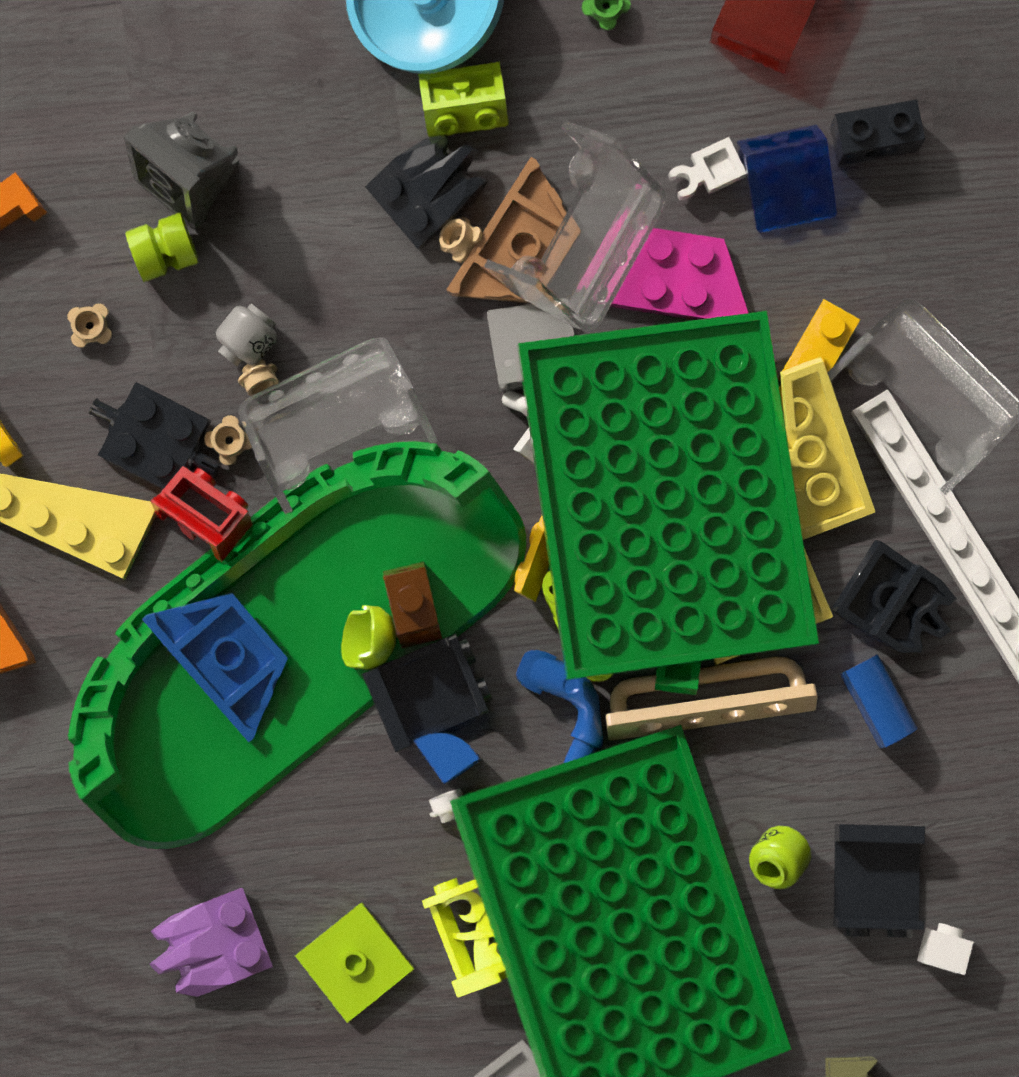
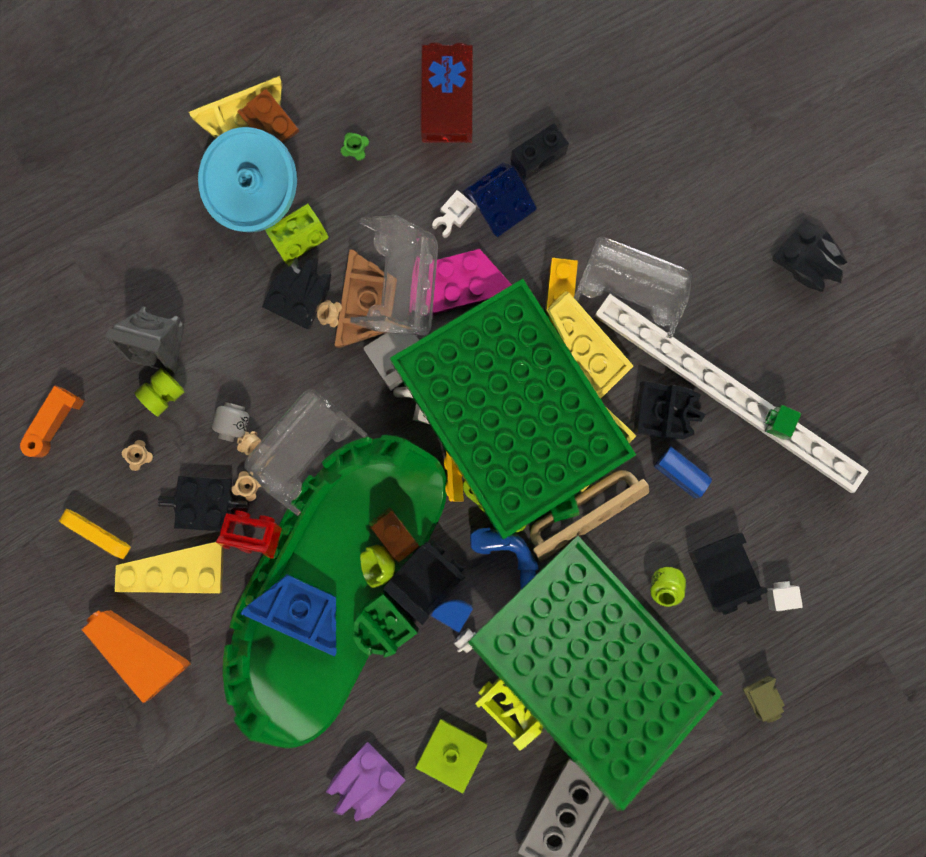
camera: 30 degrees left, 0 degrees up
(337, 730) = (382, 626): none -> green slope

